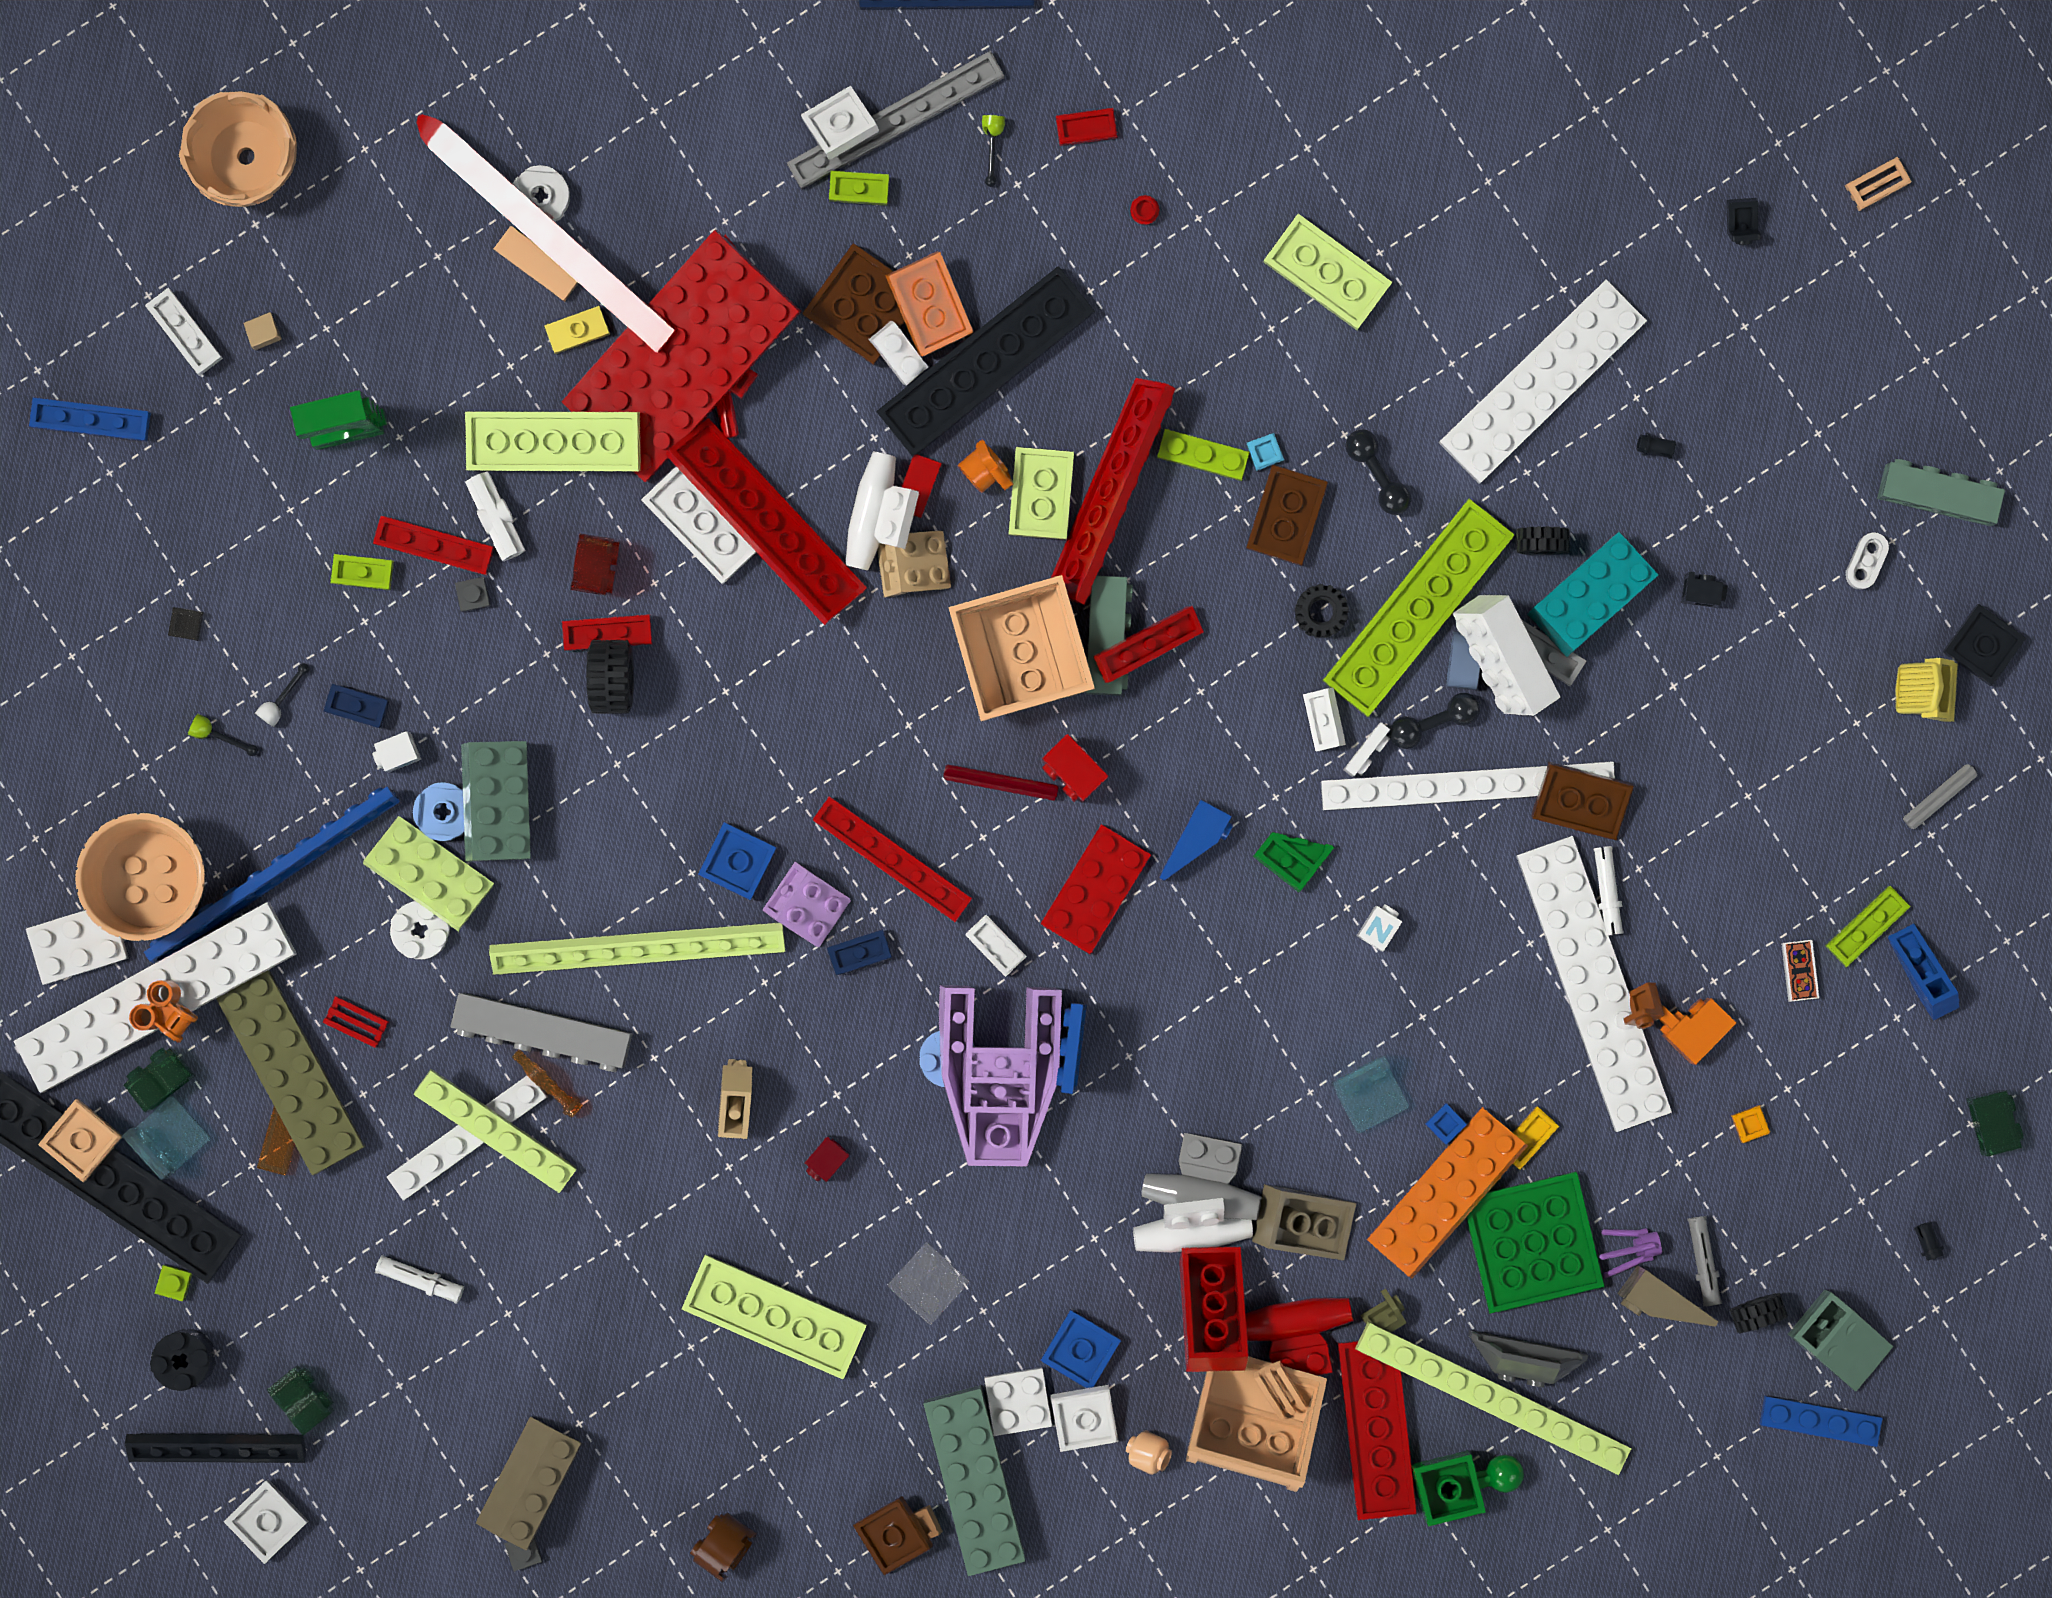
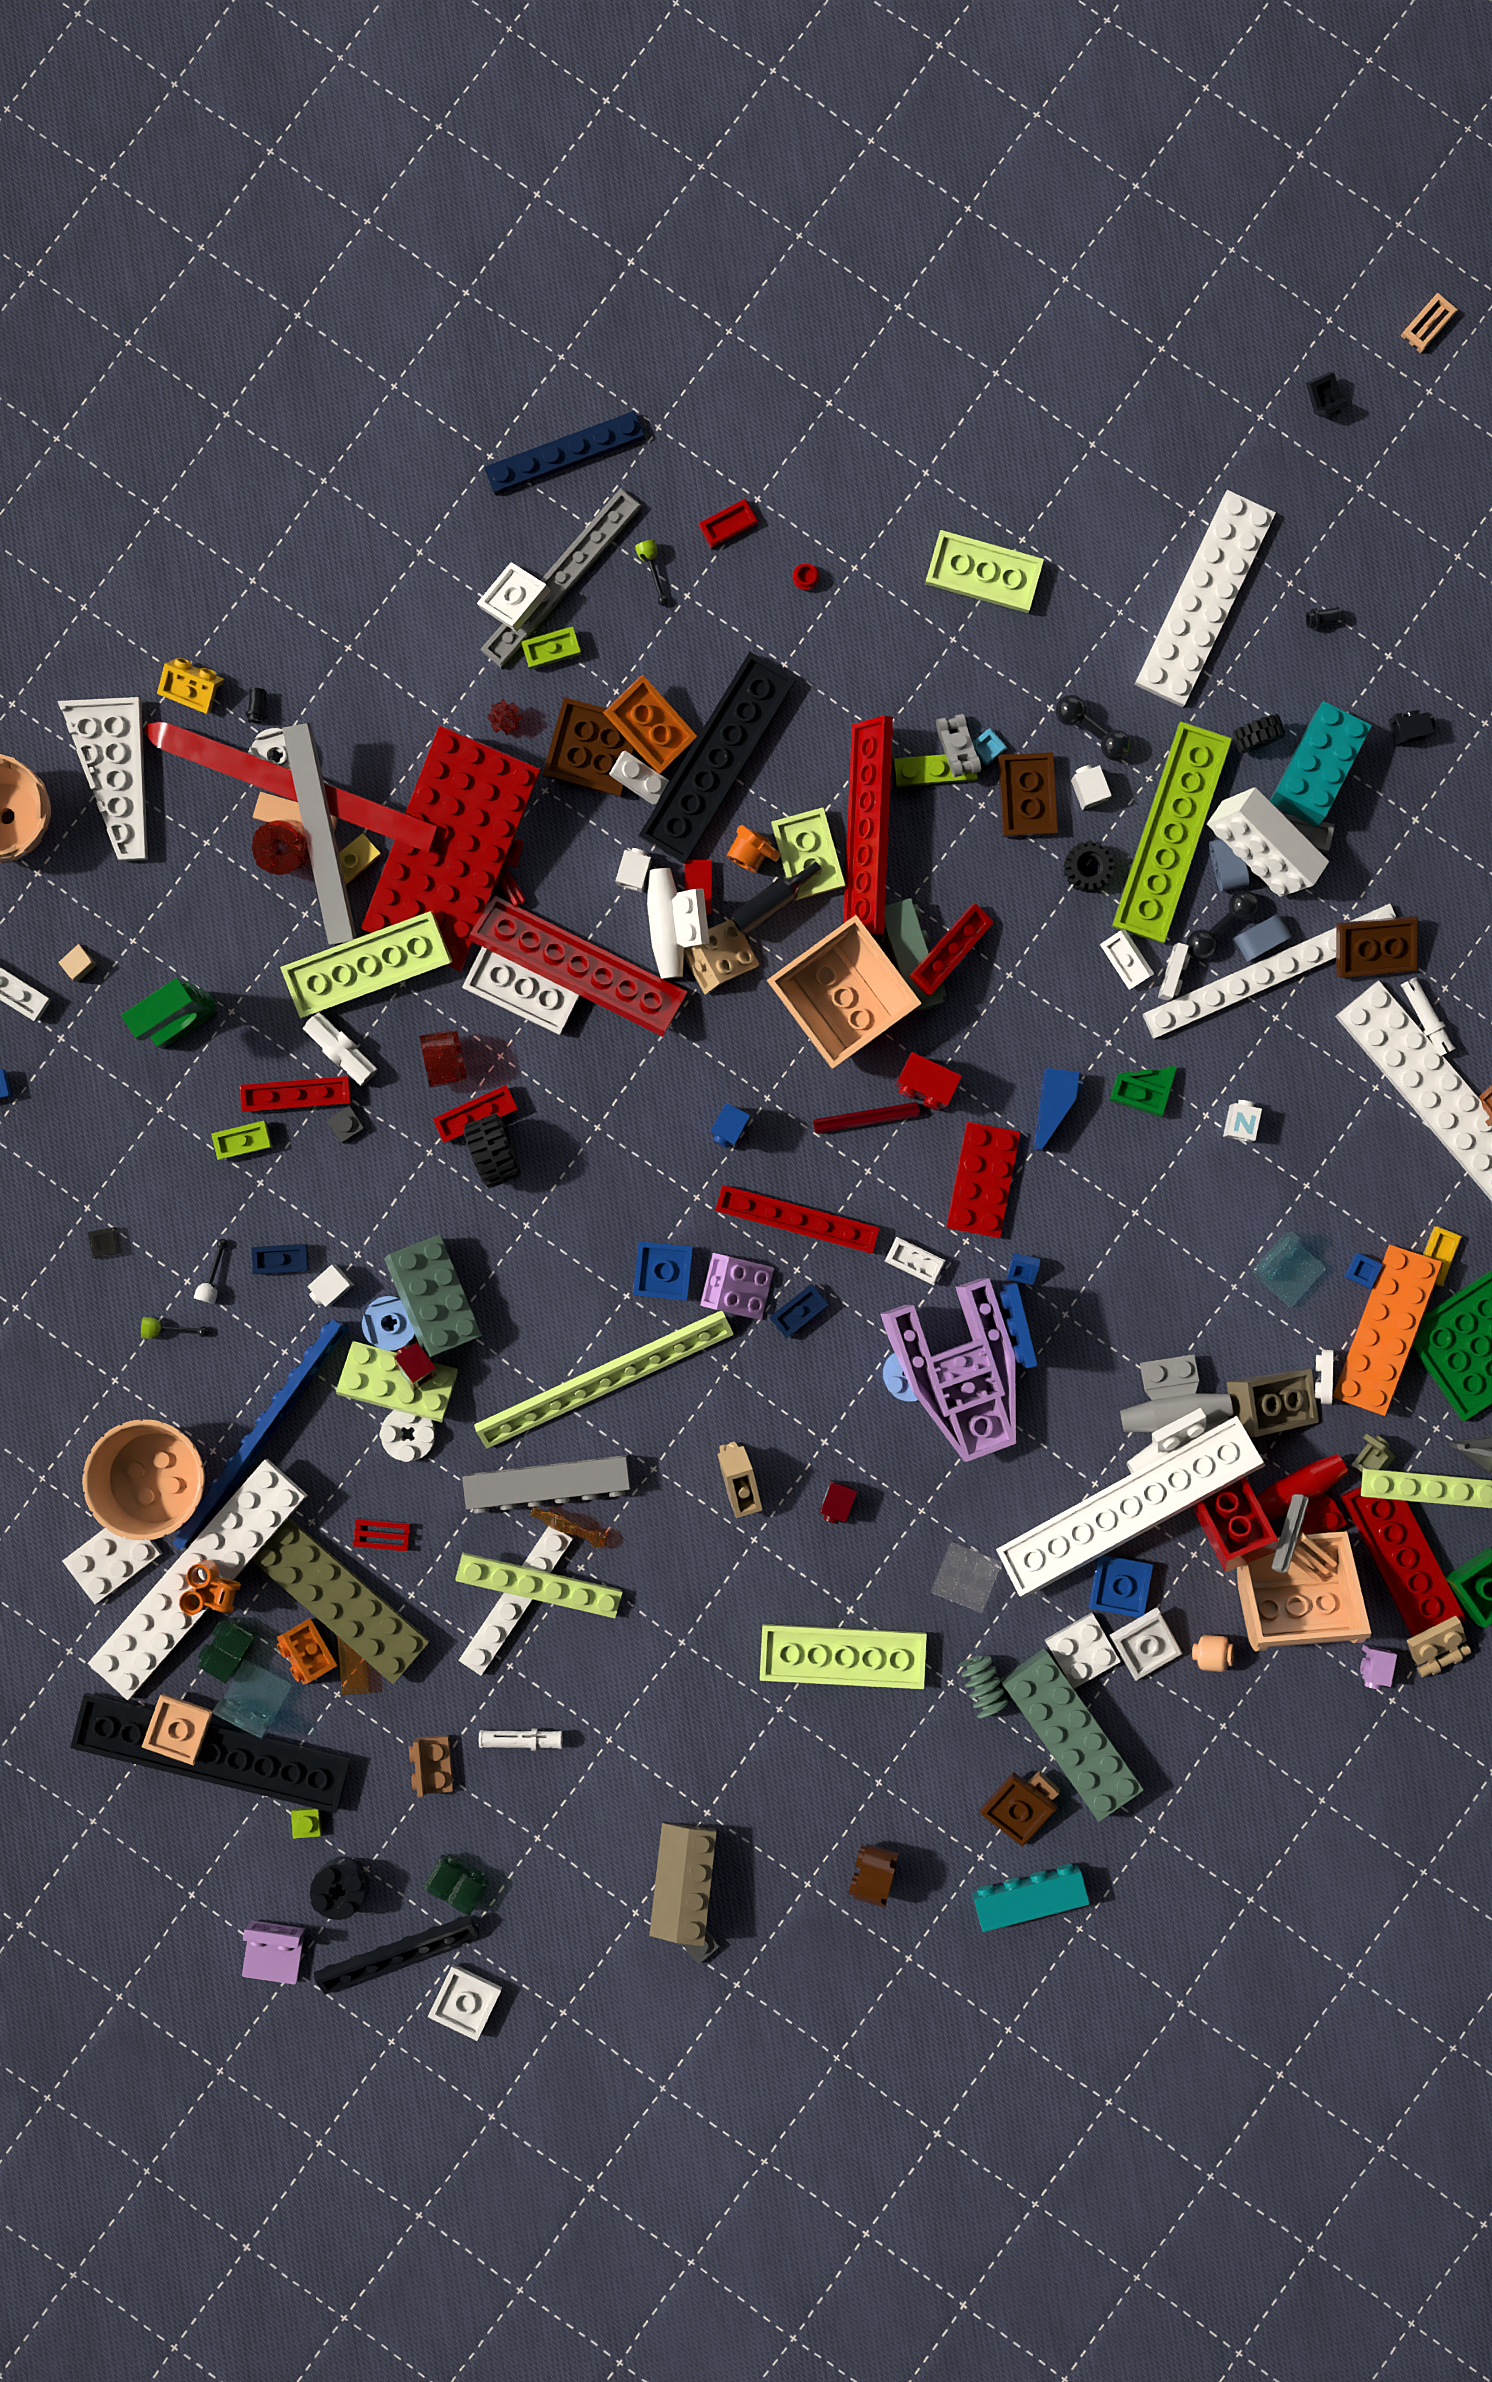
camera: 25 degrees left, 0 degrees up
(92, 1399) = (272, 1952): none -> lavender bracket
(236, 1111) = (305, 1652): none -> orange bracket
(320, 1272) = (432, 1765): none -> medium nougat bracket
(374, 135) = (112, 757): none -> white wing
(452, 863) = (414, 1365): none -> dark red brick
(479, 90) = (189, 684): none -> yellow bracket
(526, 283) = (267, 851): none -> clear red brick
(539, 137) = (256, 711): none -> black pin
(554, 292) = (319, 833): none -> light grey tile
(785, 241) = (504, 717): none -> clear red gear
(858, 740) = (729, 1126): none -> blue brick
(859, 444) = (634, 870): none -> white brick
(905, 1398) = (985, 1685): none -> sand green piece
(985, 527) = (771, 900): none -> black piece
(1102, 994) = (1023, 1269): none -> blue plate
(1116, 1272) = (1130, 1507): none -> white plate
(1233, 440) = (958, 745): none -> light grey plate
(1266, 1357) = (1290, 1533): none -> light grey axle
(1309, 1528) = (1377, 1667): none -> lavender brick
(1353, 530) = (1090, 786): none -> white brick
(1361, 1228) = (1323, 1389): none -> white plate
(1375, 1524) = (1436, 1641): none -> tan plate
(1471, 748) = (1263, 937): none -> sand blue beam

